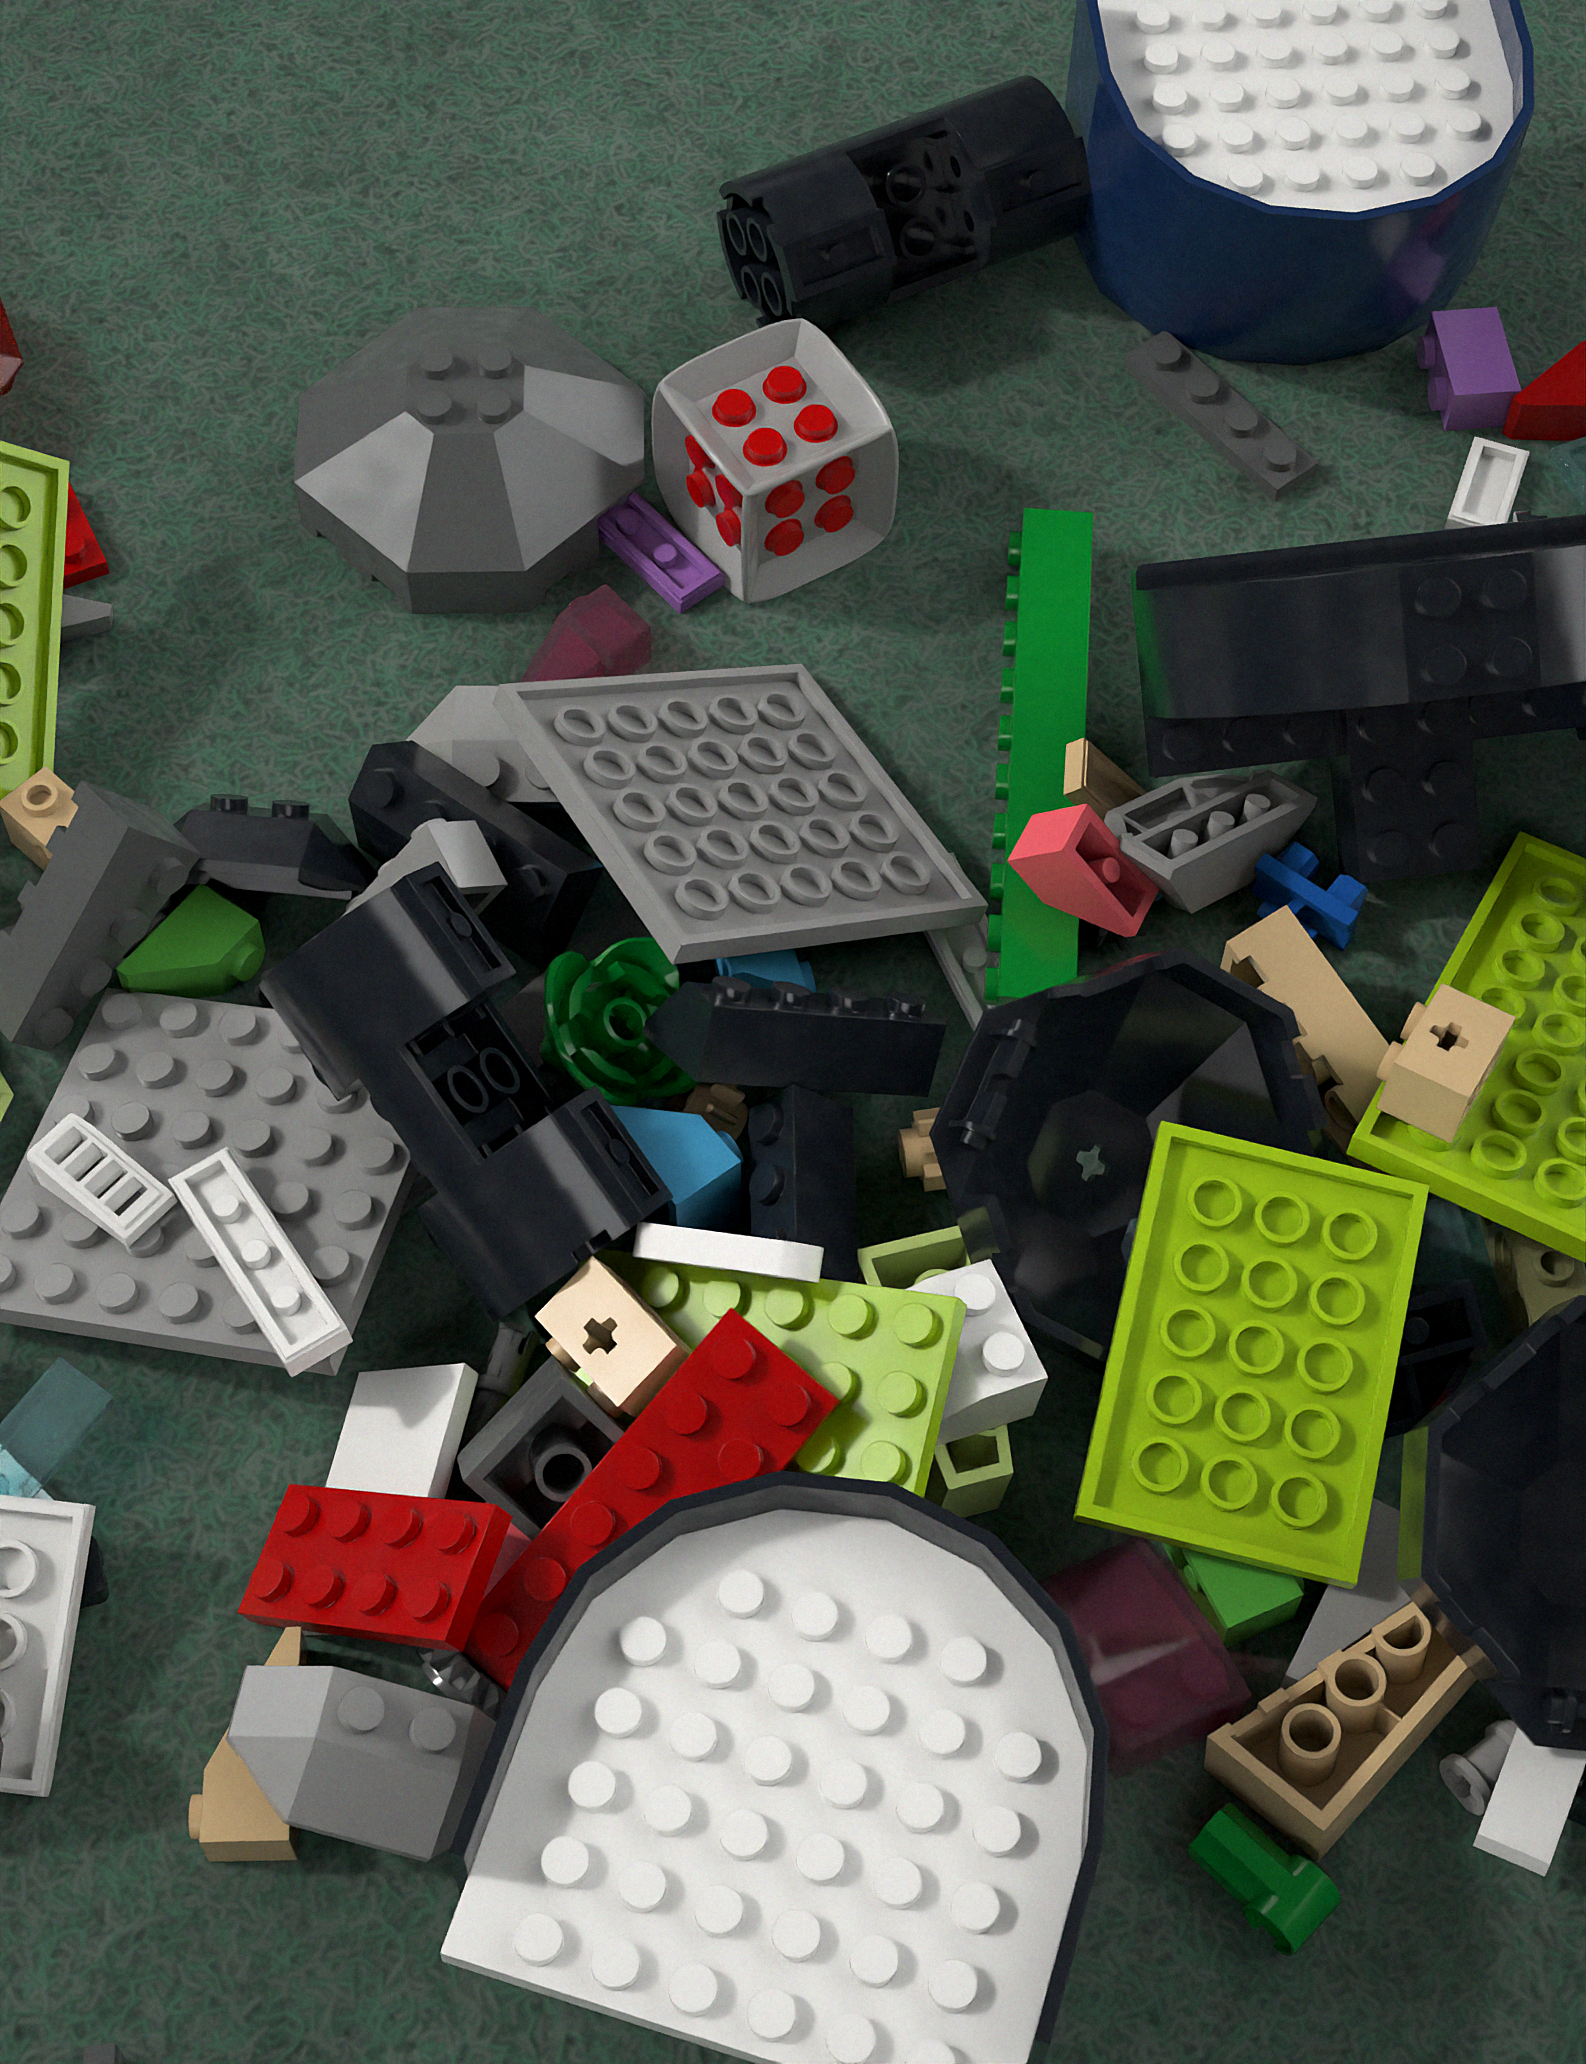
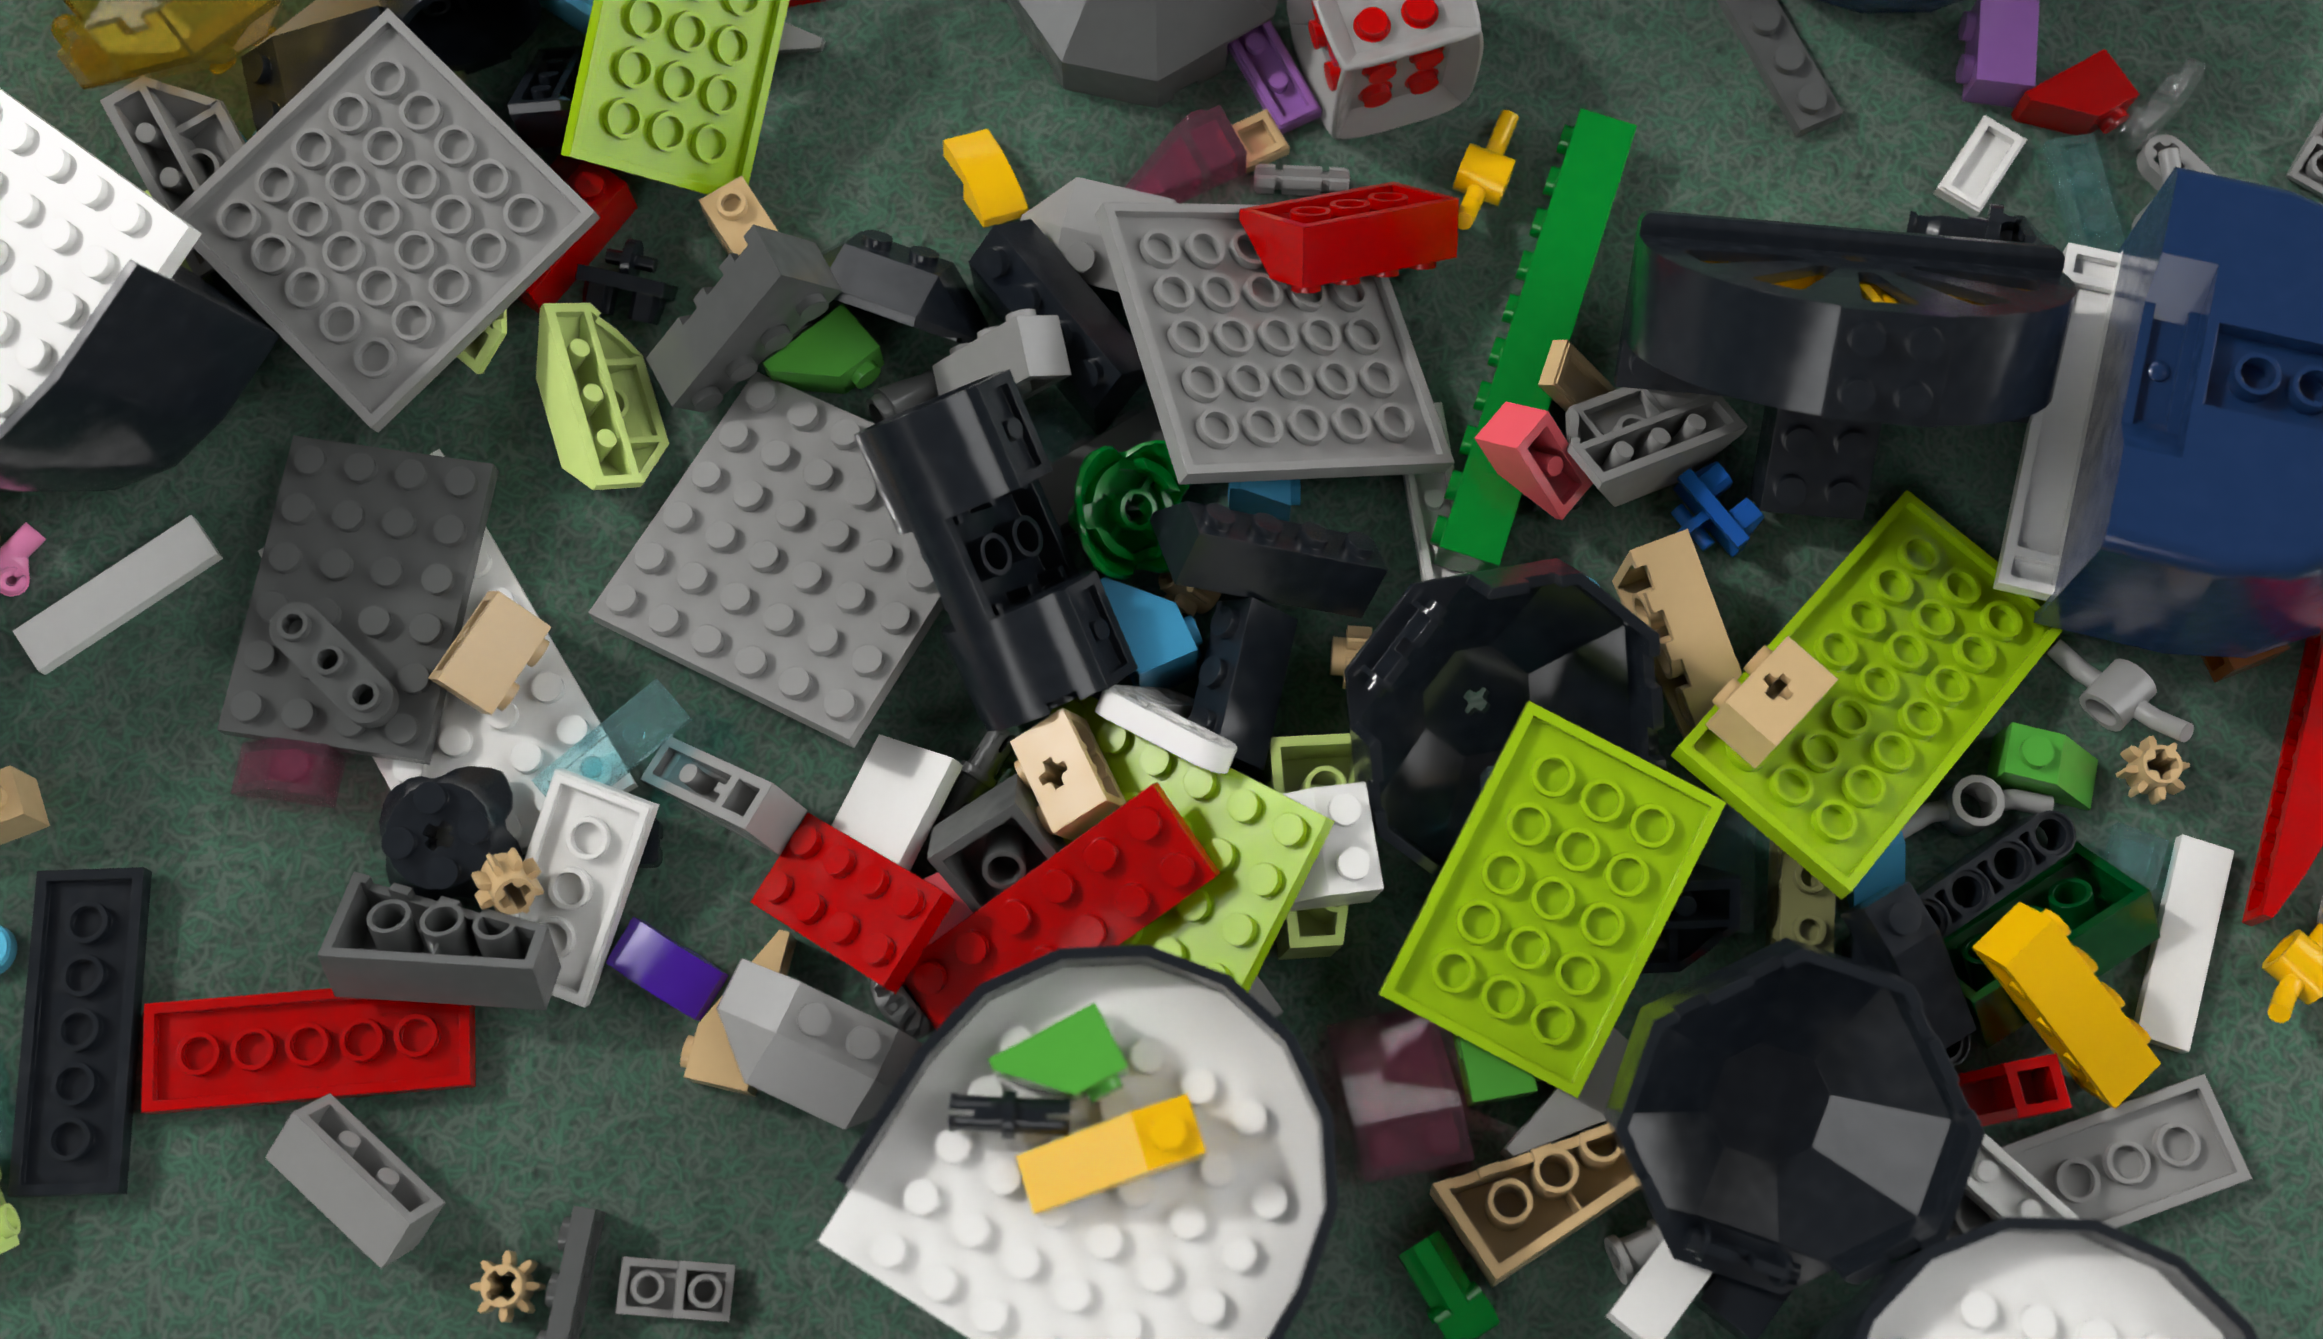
camera: 15 degrees right, 15 degrees up
(71, 1151) = (694, 519): white slope -> none
(145, 1719) = (666, 969): none -> dark purple slope
(179, 1484) = (725, 794): none -> light grey slope
(260, 1262) = (815, 646): white tile -> none
(342, 715) = (986, 177): none -> yellow slope
(657, 1722) = (1009, 1114): none -> black pin
(667, 618) = (1261, 139): none -> tan tile
(712, 1633) = (1067, 1058): none -> bright green slope
(722, 651) = (1300, 179): none -> light grey axle
(801, 685) = (1352, 234): none -> red slope
(806, 1734) = (1112, 1154): none -> yellow slope
(933, 598) = (1485, 171): none -> yellow piece

